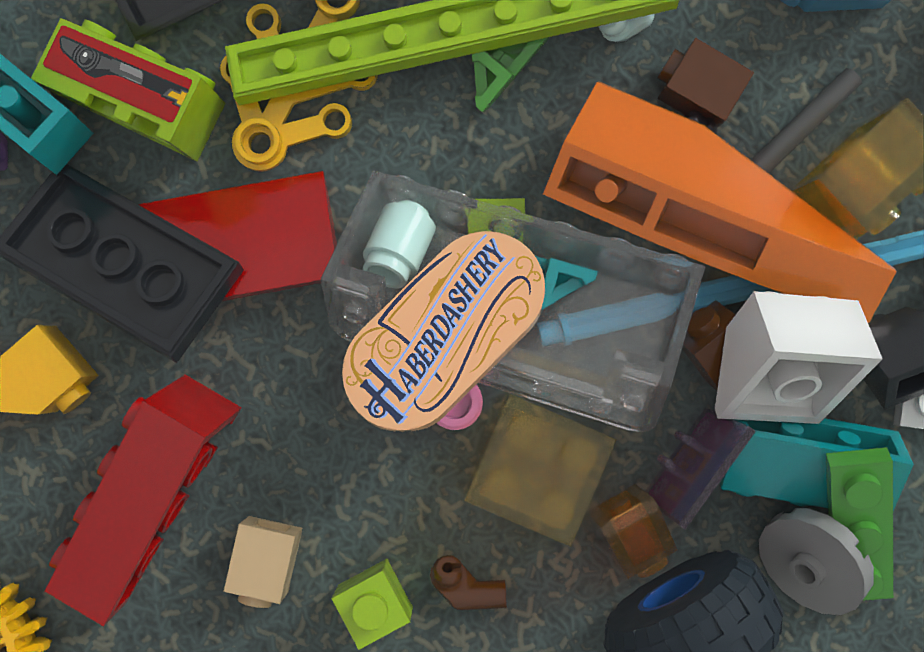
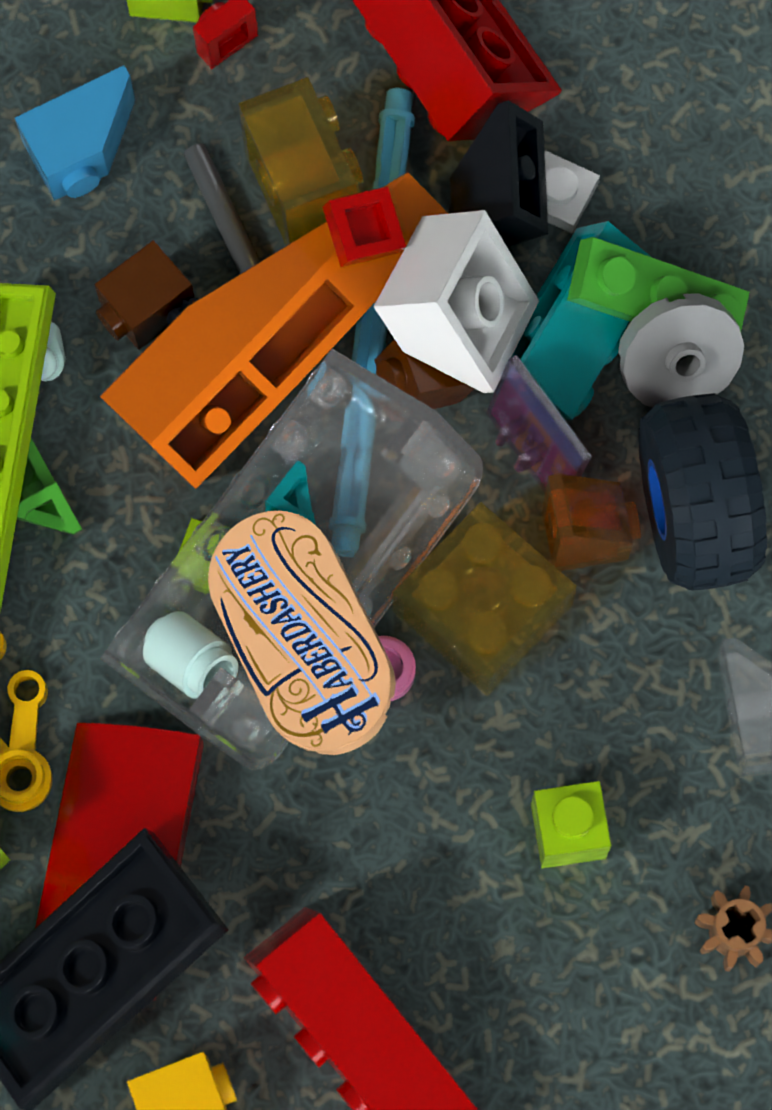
camera: 65 degrees left, 15 degrees down
(262, 561) = (484, 932): tan brick -> none
(462, 589) = (592, 731): reddish brown arm -> none
(828, 254) = (364, 226): none -> red plate

